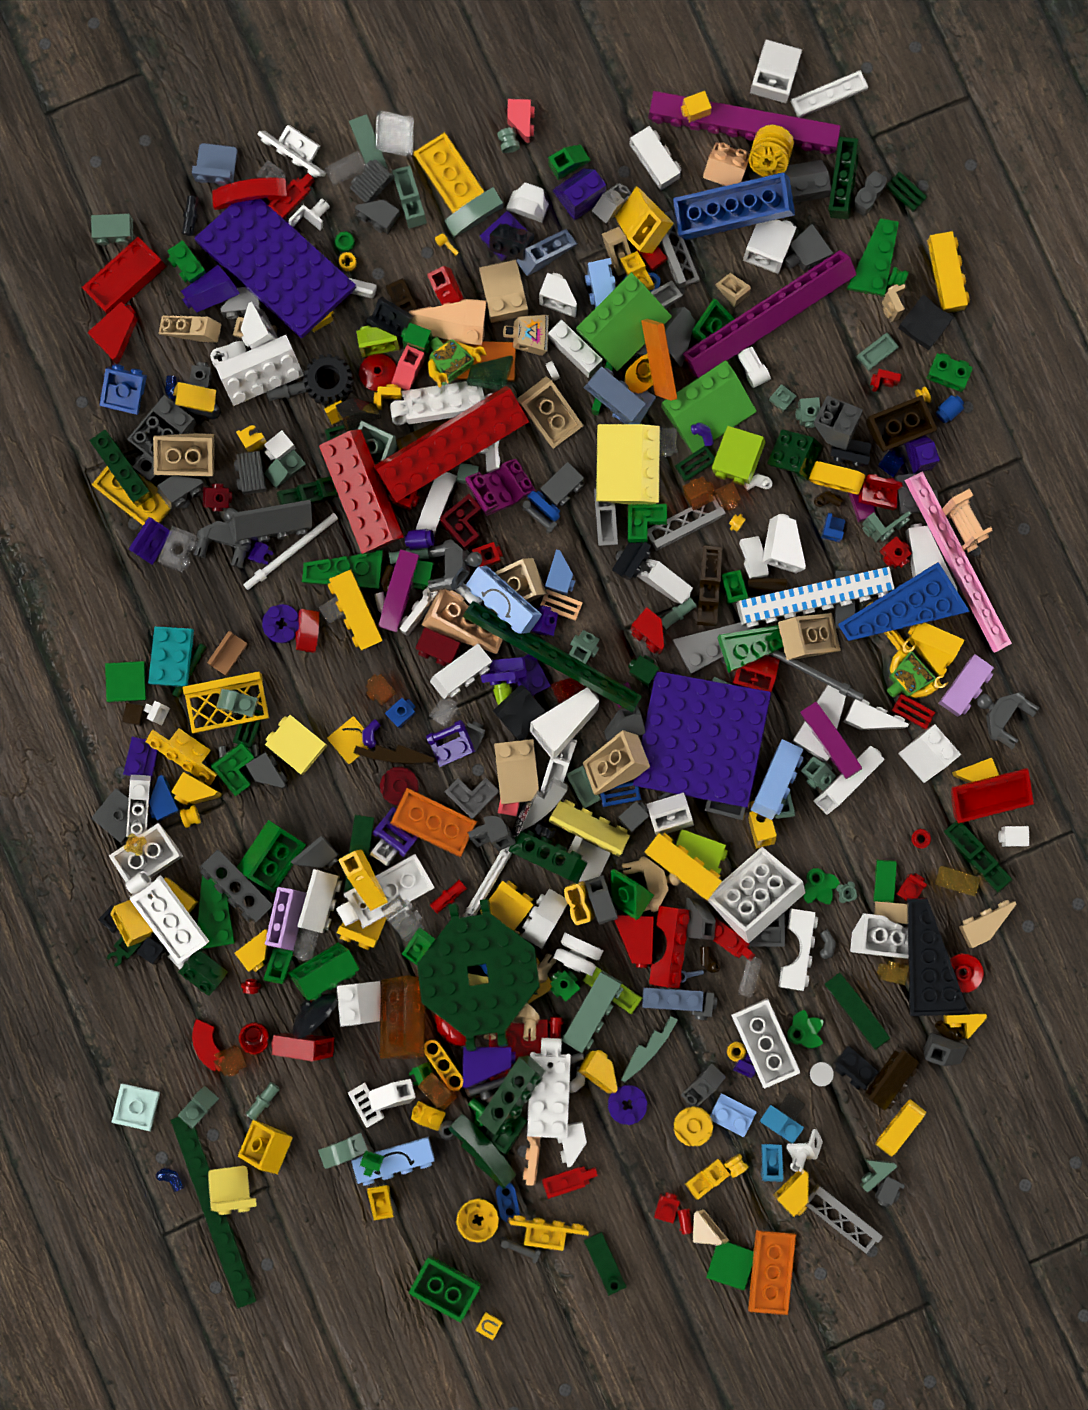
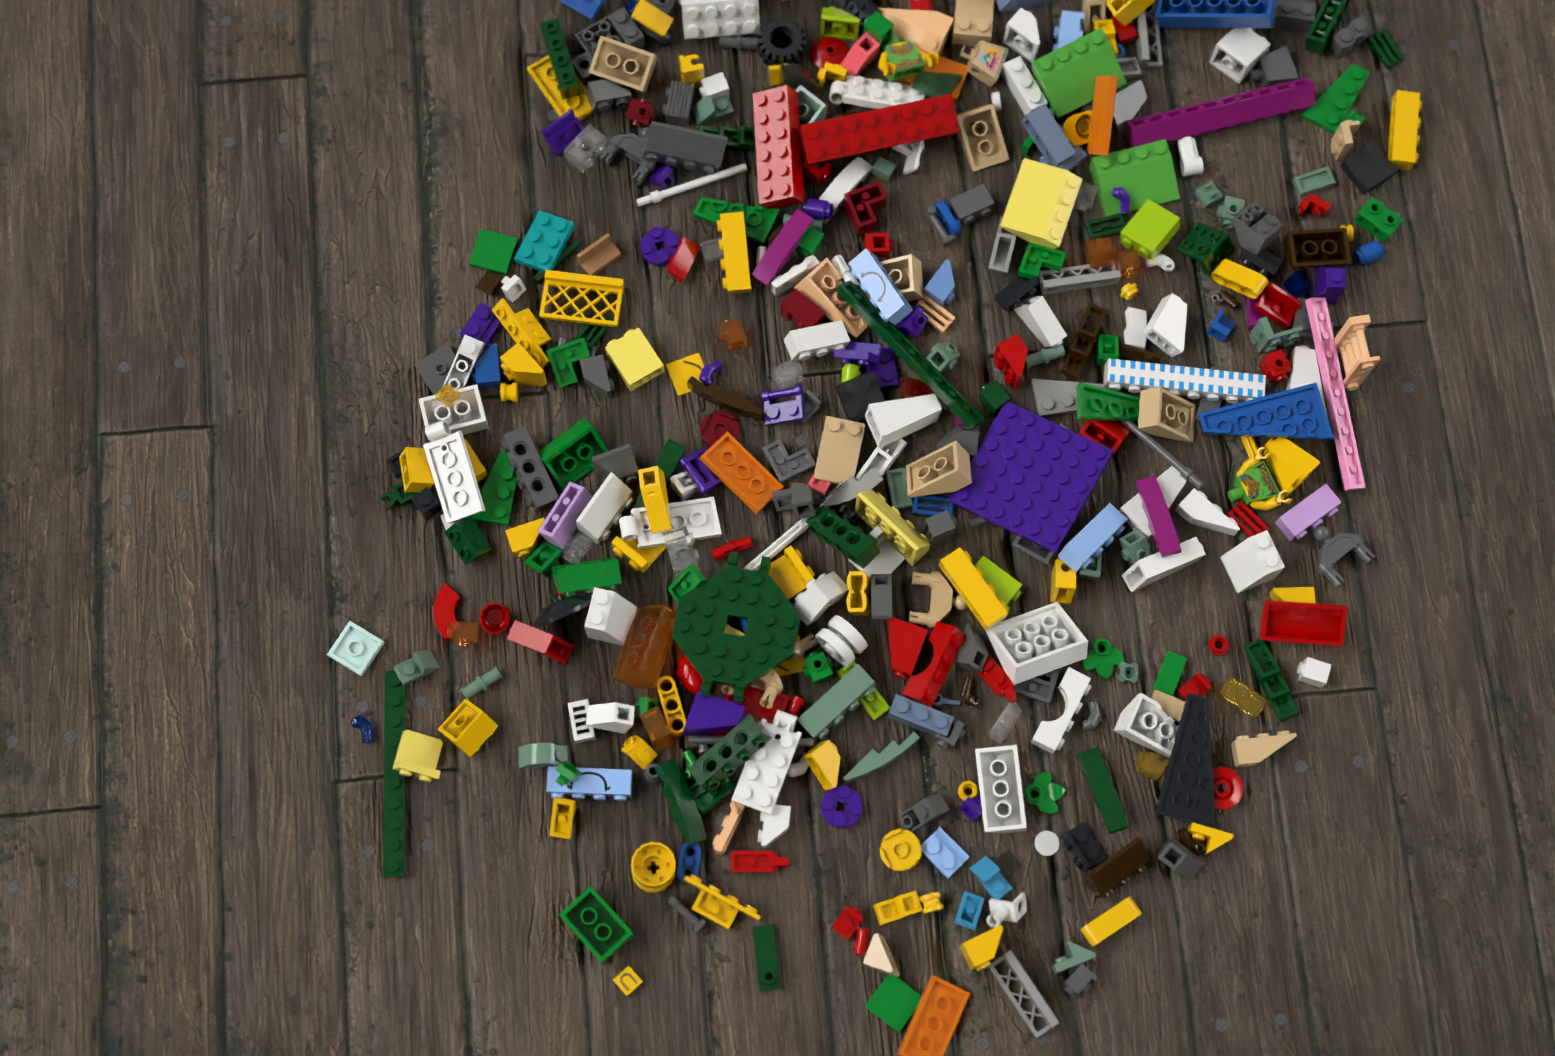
camera: 15 degrees right, 10 degrees down
(236, 703) = (590, 297): sand green brick -> none
(250, 986) = (509, 569): red plate -> none
(401, 712) = (745, 361): blue brick -> none
(456, 565) = (844, 243): dark grey connector -> none
(501, 487) = (910, 190): magenta slope -> none
(629, 895) = (911, 599): green slope -> none
(670, 814) = (977, 537): white slope -> none
(711, 321) = (1163, 100): green slope -> none
(733, 289) = (1193, 83): tan slope -> none

